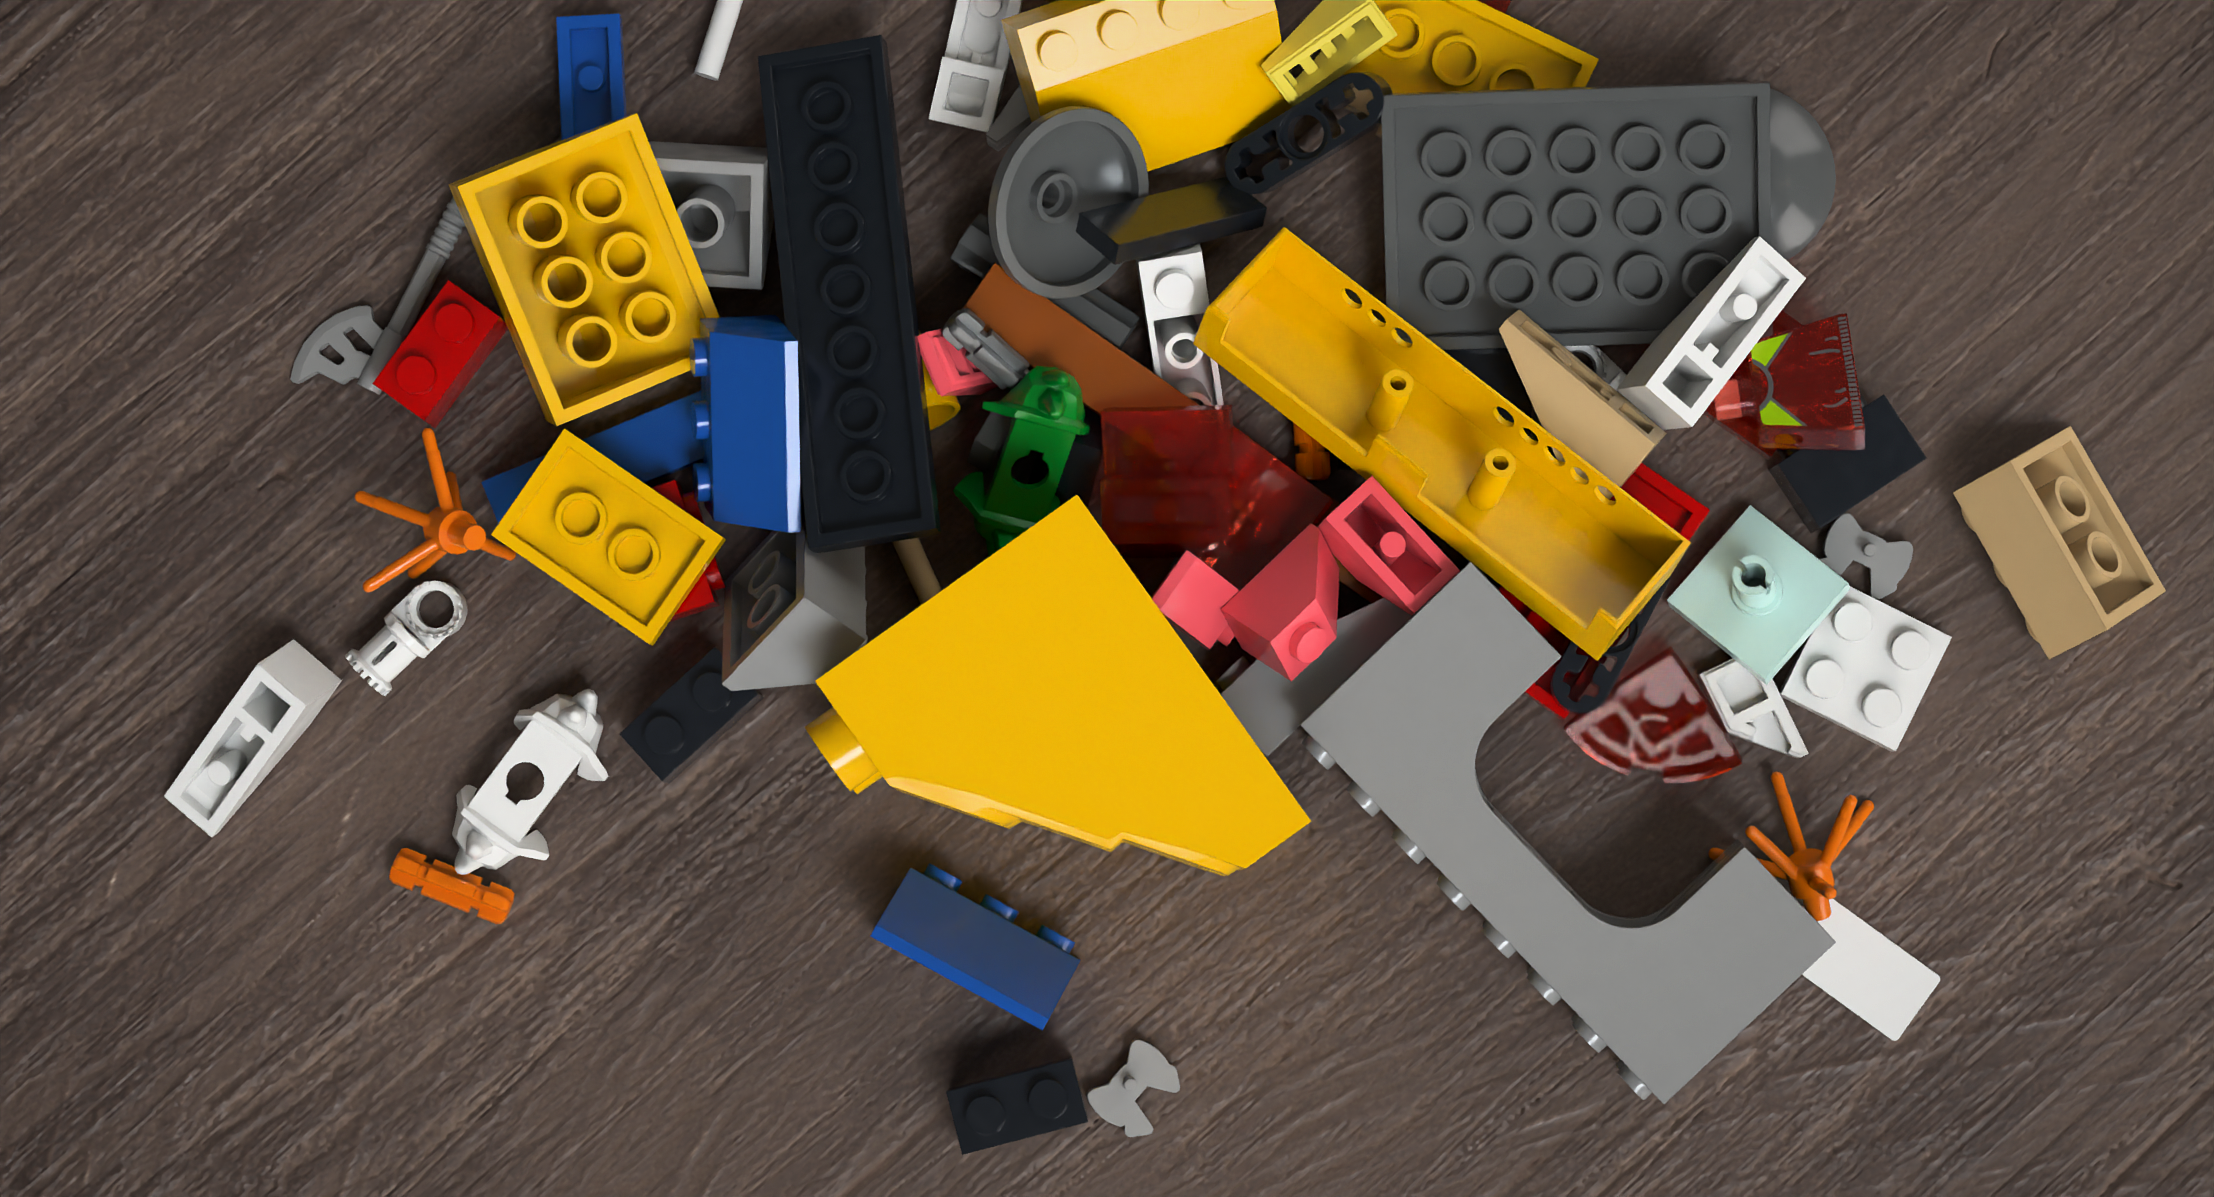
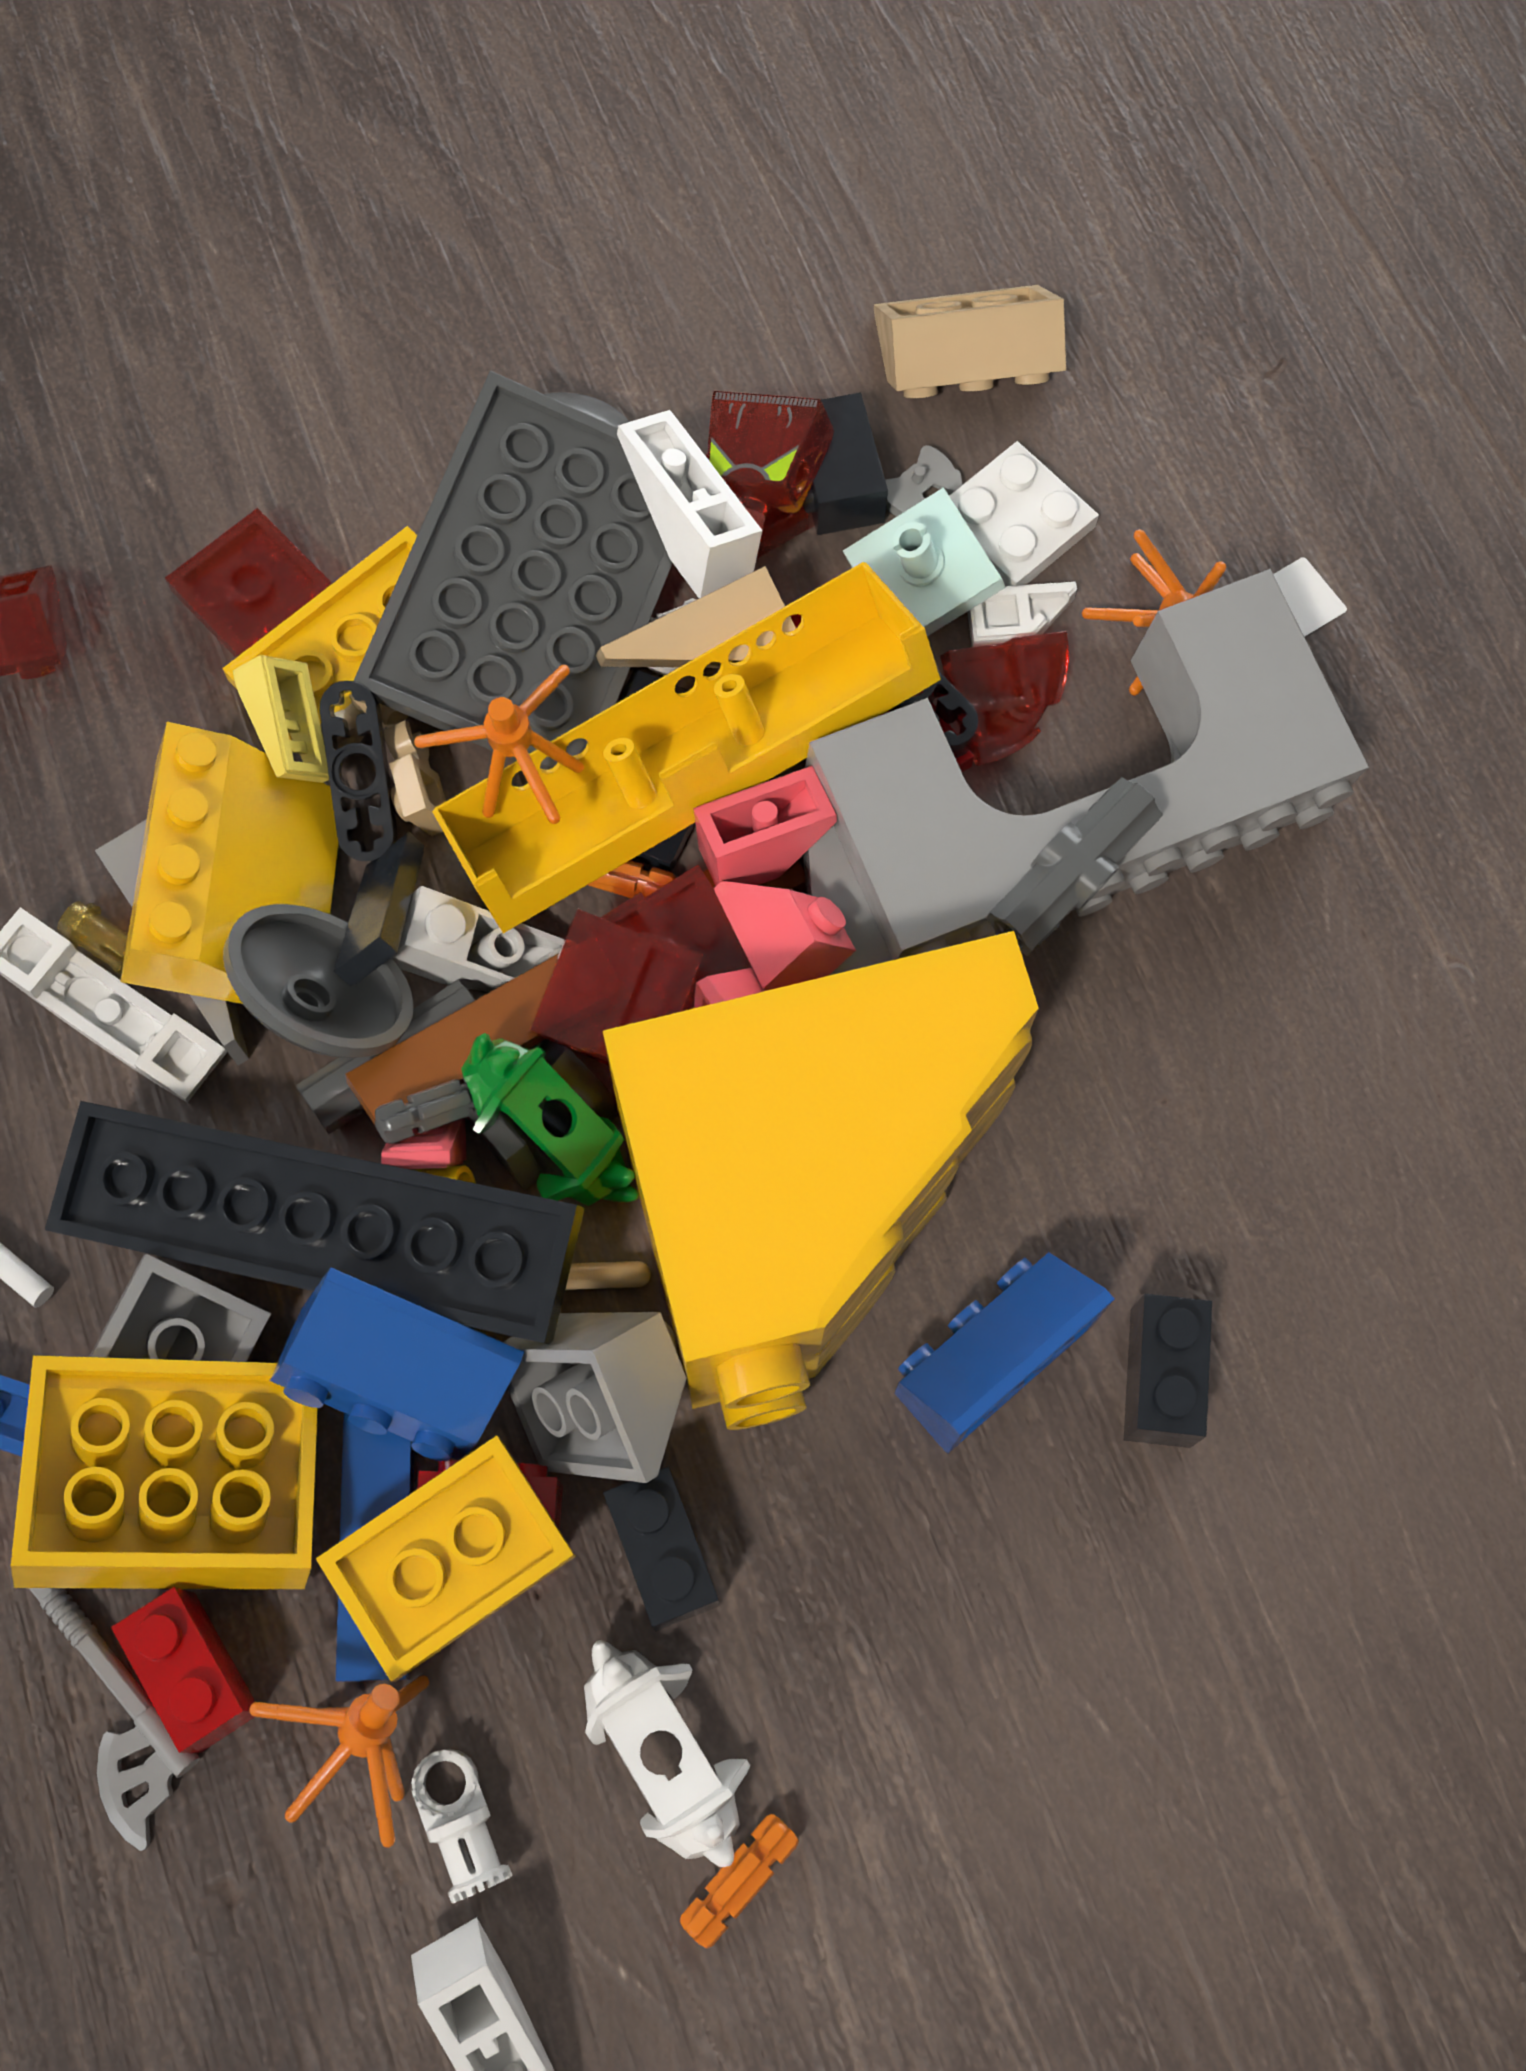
camera: 70 degrees left, 15 degrees down
(1117, 1098) = (1167, 1242): light grey piece -> none
(1321, 193) = (416, 784): none -> tan plate
(1368, 278) = (510, 736): none -> orange plant
(1437, 856) = (1075, 864): none -> dark grey piece

